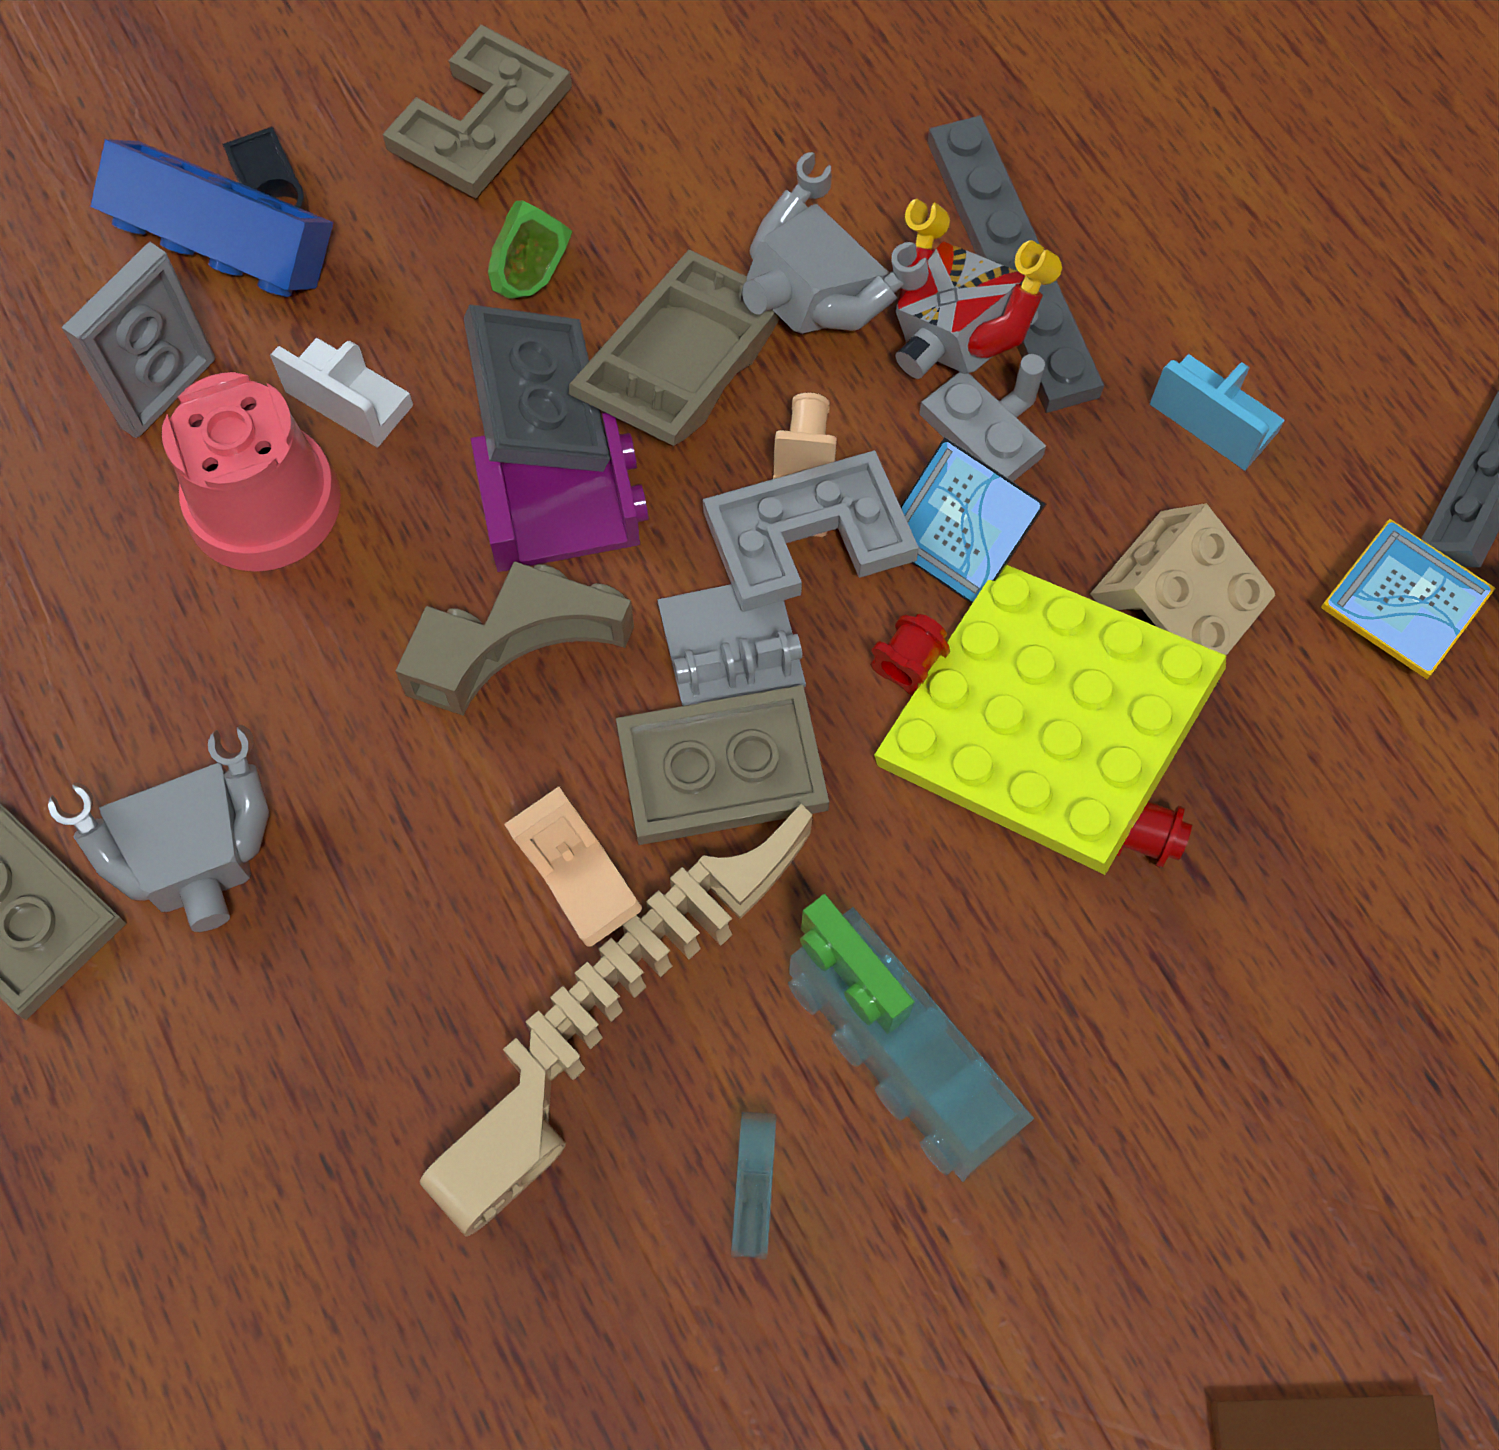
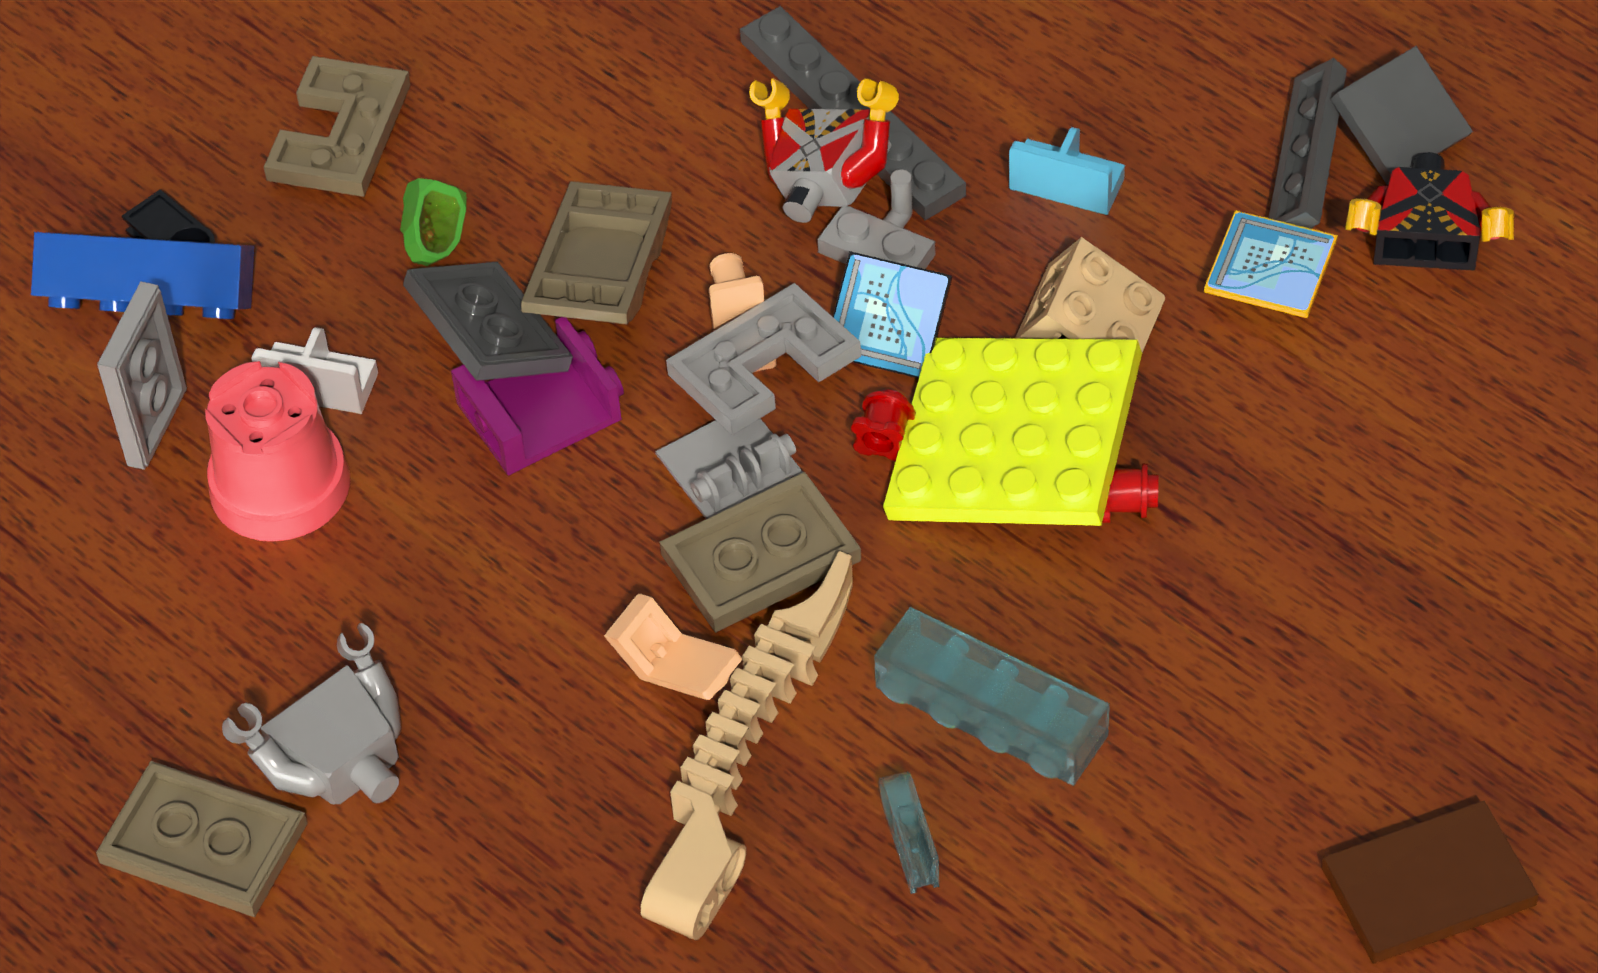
camera: 15 degrees left, 15 degrees down
(536, 608) = (559, 486): dark tan arch -> none
(815, 270) = (690, 163): light grey torso -> none
(836, 944) = (929, 635): bright green plate -> none

